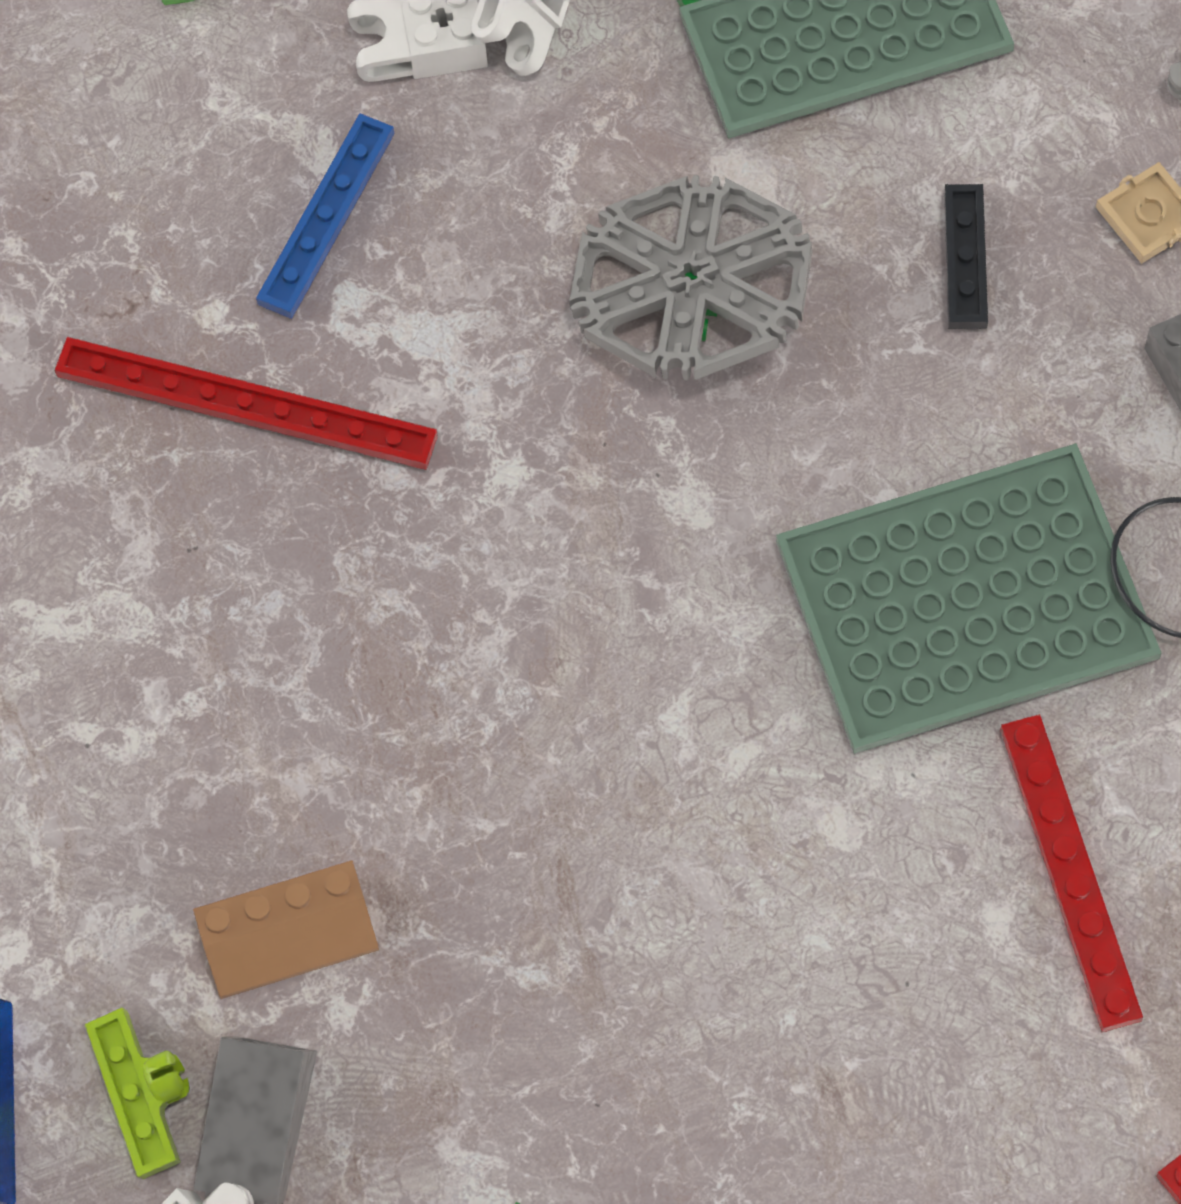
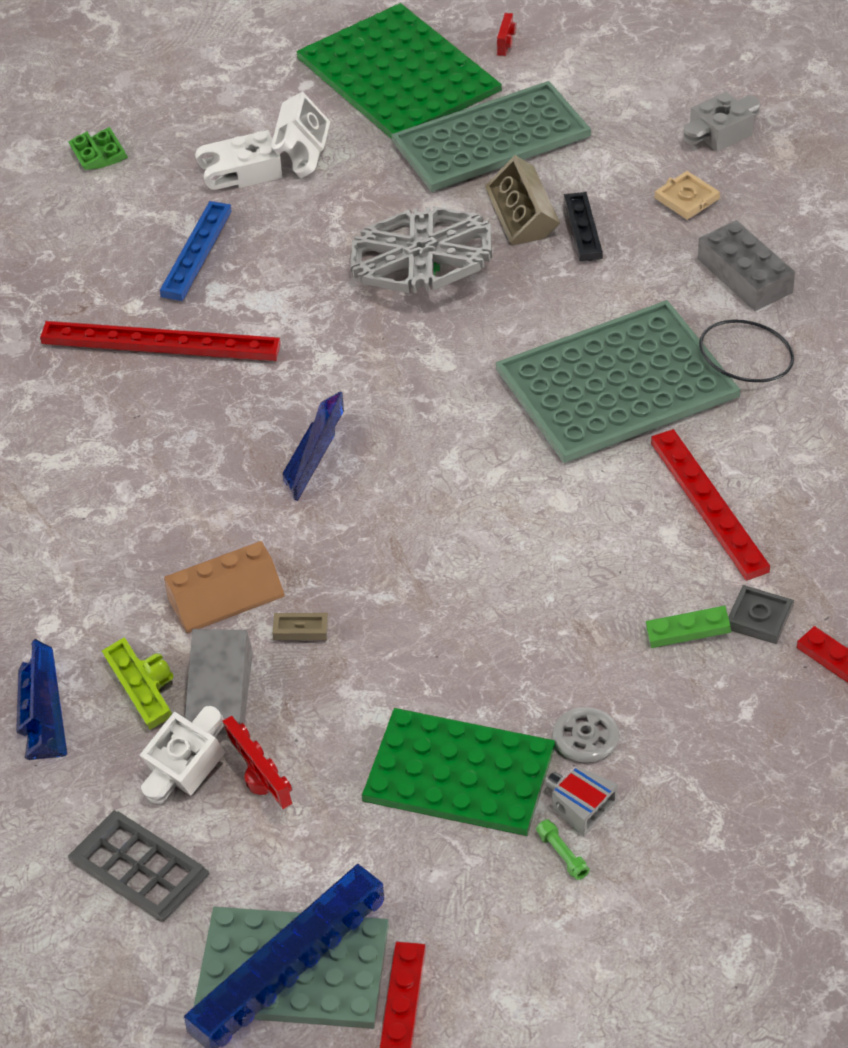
camera: 10 degrees left, 20 degrees down
(394, 1021) = (300, 626): none -> dark tan plate
(460, 661) = (313, 445): none -> clear blue wedge
(873, 191) = (521, 202): none -> dark tan slope
(993, 1117) = (688, 626): none -> bright green plate
(1109, 1105) = (760, 614): none -> dark grey tile

